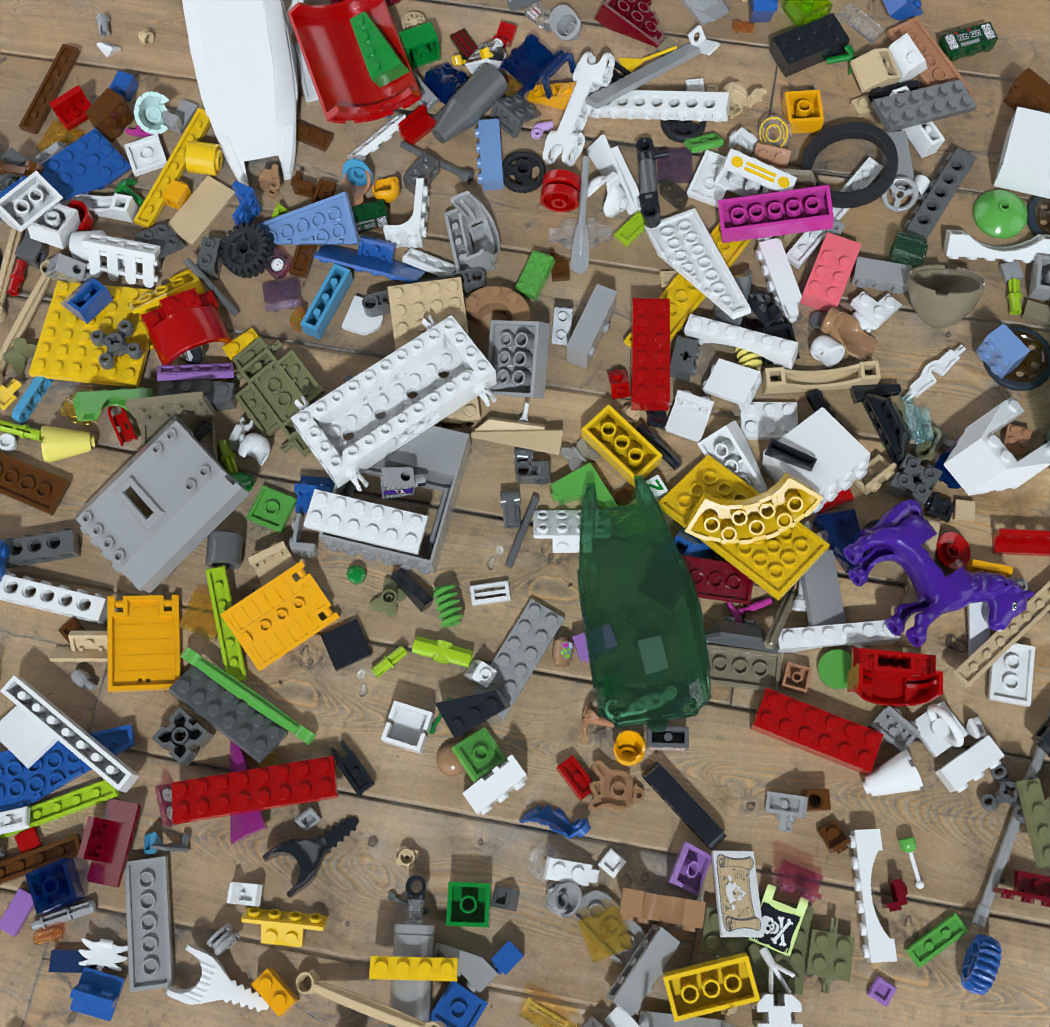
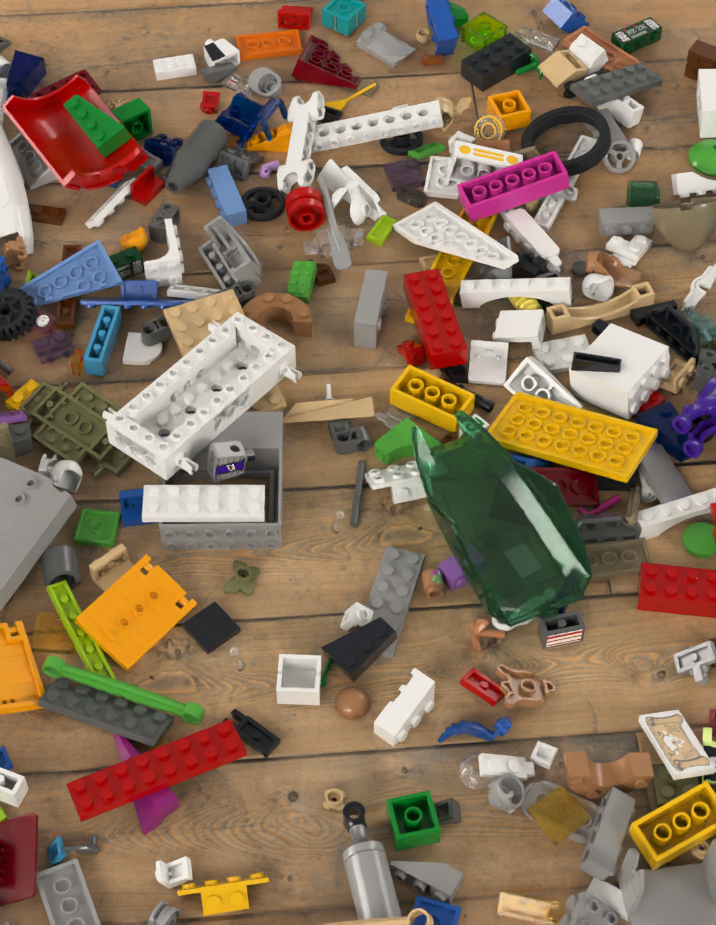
camera: 20 degrees left, 20 degrees down
(164, 798) = (66, 812): slope -> none
(170, 737) = (65, 742): dark grey brick -> none
(302, 187) = (48, 255): reddish brown bracket -> none
(304, 550) = (138, 551): light grey bracket -> none
(307, 819) = (219, 788): light grey slope -> none
(311, 852) = (229, 819): black animal -> none
(356, 574) = (202, 564): green tile -> none
(357, 179) = (105, 231): piece -> none
(388, 661) = (260, 630): lime axle -> none
(392, 897) = (329, 840): dark grey hinge -> none
(412, 589) = (269, 566): black piece -> none
(413, 968) = (353, 883): yellow arch -> none
(442, 652) = (312, 609): lime piece -> none
(447, 605) = (305, 567): bright green piece -> none
(463, 43) = (174, 118): tile -> none
(466, 176) = (205, 217): dark grey piece -> none
(479, 754) = (377, 686): bright green plate -> none
(488, 53) = (200, 113): torso -> none
(490, 593) = (345, 554): white tile -> none
(506, 958) = (468, 860): blue brick -> none
(510, 503) = (340, 471): dark grey piece -> none
(520, 357) = (315, 345): light grey slope -> none
(562, 324) = (341, 316): bracket -> none
(629, 747) = (527, 645): light orange hair -> none
(642, 76) = (351, 108): light grey tile -> none
(648, 181) = (390, 197): black piece -> none
(683, 805) = (597, 685): black beam -> none
(687, 349) = (467, 317): dark grey brick -> none
(690, 868) = (621, 735): medium lavender slope -> none
(706, 46) = (397, 80): white bracket -> none
(753, 517) = (582, 421): yellow brick -> none
(796, 677) = (666, 552): nougat piece -> none
(830, 273) = (578, 227): coral brick -> none
(861, 106) = (560, 99): tan plate -> none
(962, 163) = (655, 147): dark grey brick -> none

